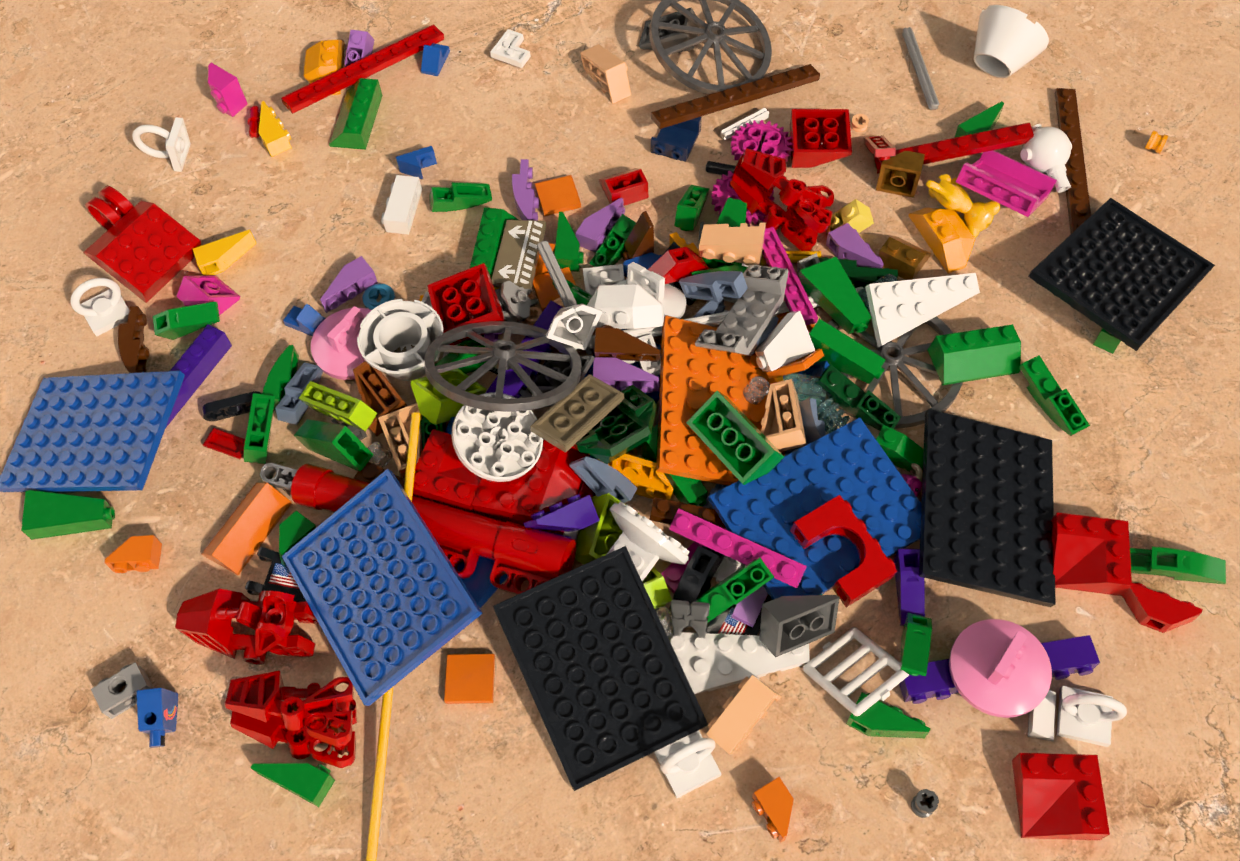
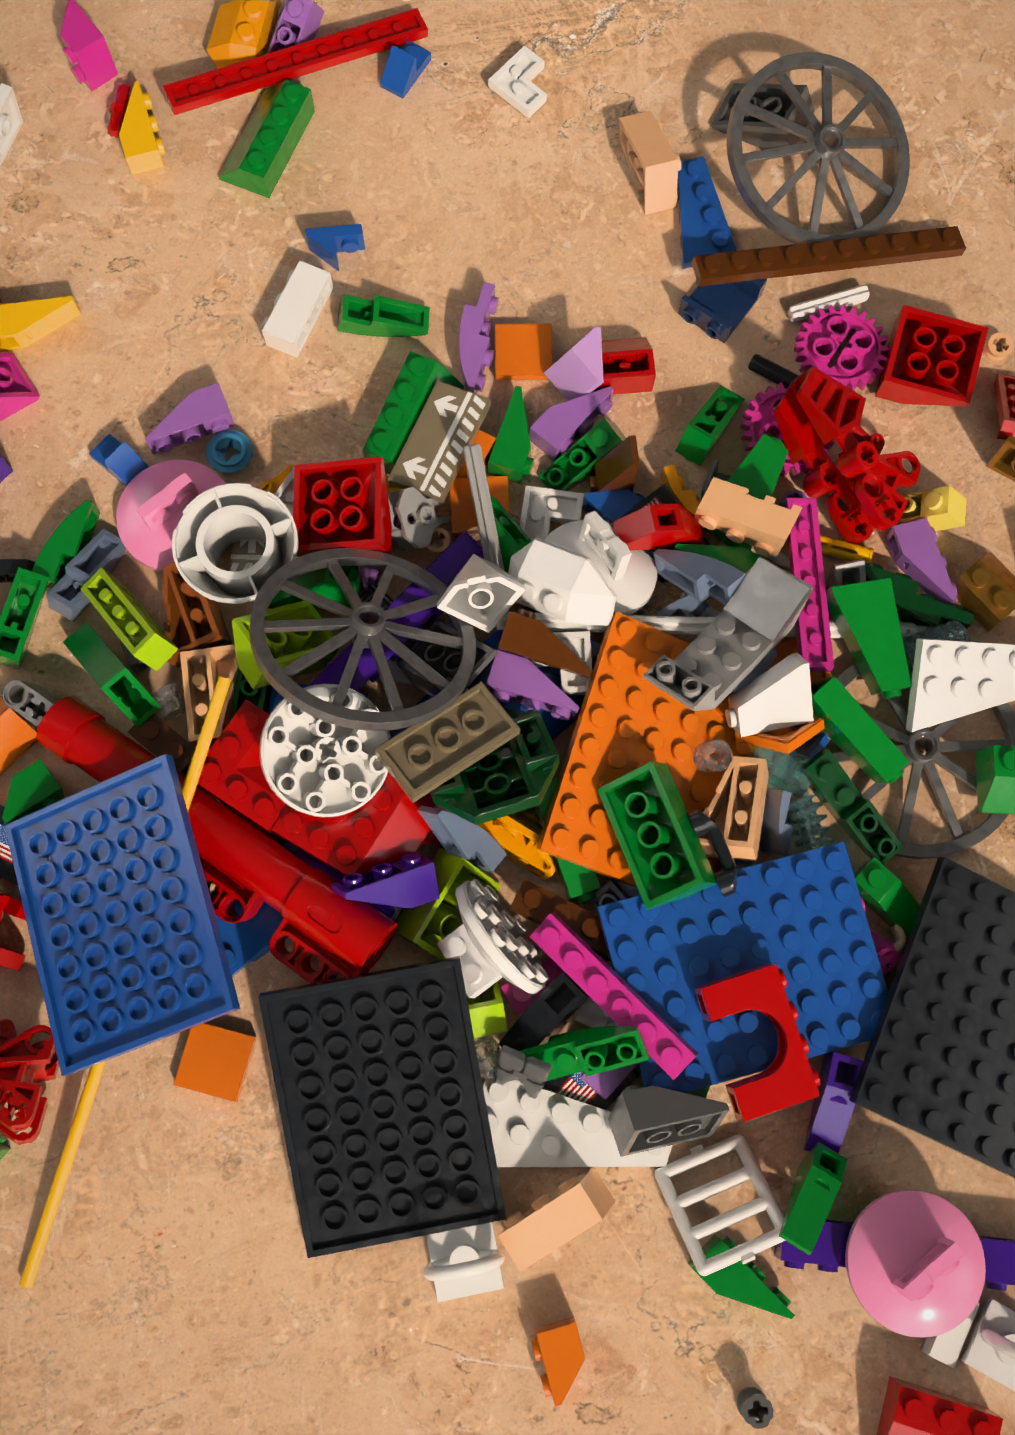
camera: 10 degrees right, 15 degrees up
(597, 191) = (579, 368): none -> lavender slope
(646, 93) = (700, 213): none -> blue wing
(761, 282) = (767, 600): none -> flat silver tile
(765, 424) = (728, 876): none -> black bar

